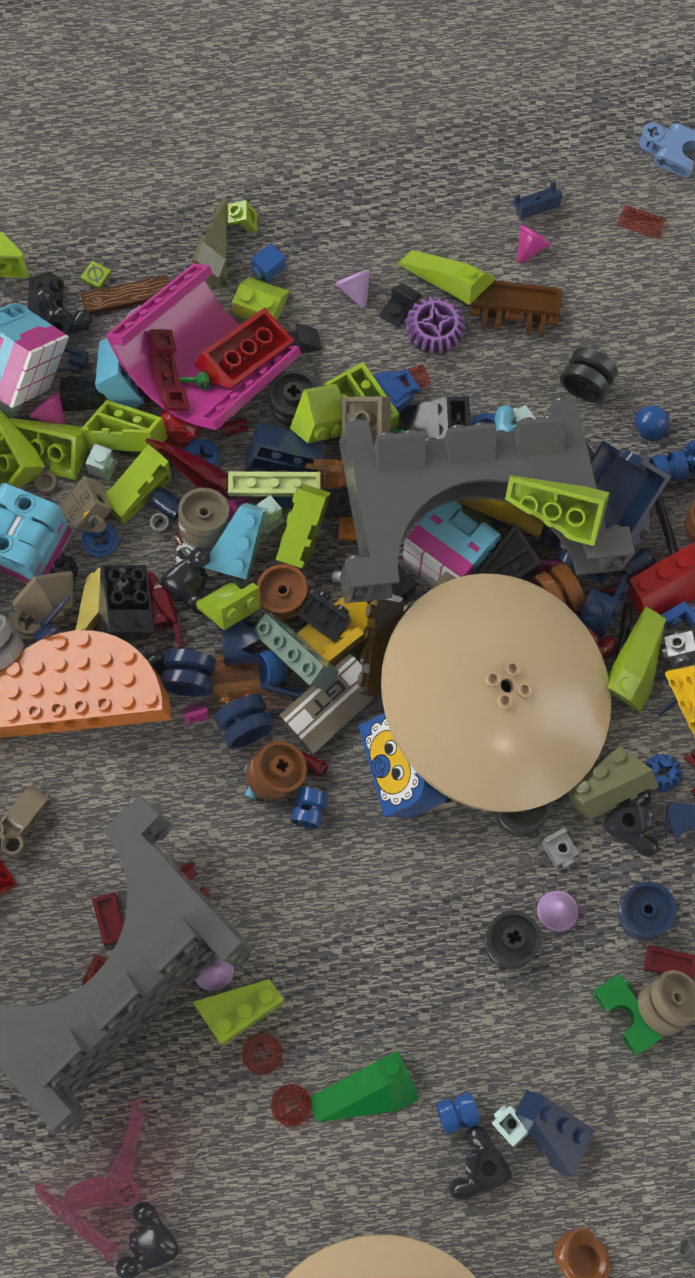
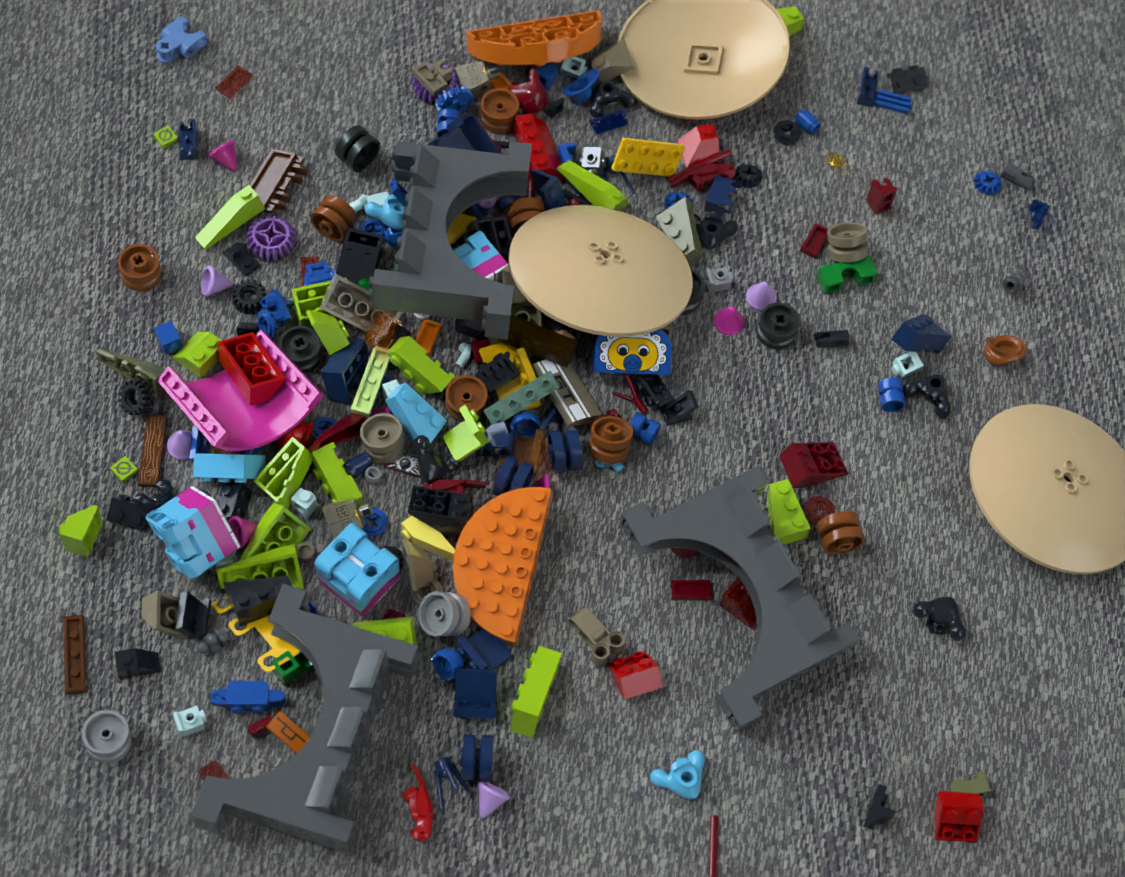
camera: 80 degrees left, 10 degrees down
(46, 628) = (445, 575): dark blue plant -> none
(99, 1191) = (899, 631): clear pink piece -> none
(165, 370) = (255, 425): dark red slope -> none
(177, 255) = (128, 397): none -> black tyre
(202, 380) = (266, 401): green hand -> none
(225, 1085) = (840, 532): none -> dark orange wheel
(242, 213) = (116, 343): lime bracket -> none
(302, 1100) = (861, 509): clear red gear -> none
(316, 354) = (267, 323): none -> blue gear
(326, 1032) = (812, 463): none -> dark red slope
(346, 205) = (139, 267): none -> dark orange wheel
(347, 350) = (279, 306): none -> blue hips
(350, 338) = (244, 288): none -> black tyre
(350, 845) = (680, 408): none -> black slope
(352, 788) = (636, 400): none -> dark red plant
(363, 811) = (654, 391): none -> black bracket
(370, 1091) = (862, 448): green wedge -> none
(475, 378) = (333, 218): none -> dark orange wheel
(506, 878) = (729, 321): none -> dark pink hat
(511, 399) = (359, 203): none -> light aqua arm
(523, 1020) = (832, 338): none -> black hinge
(535, 177) = (165, 137): none -> lime tile
(566, 507) = (488, 168): lime wedge -> none
(650, 897) = (778, 239): dark blue wheel -> none
(652, 423) = (406, 126): blue hair -> none

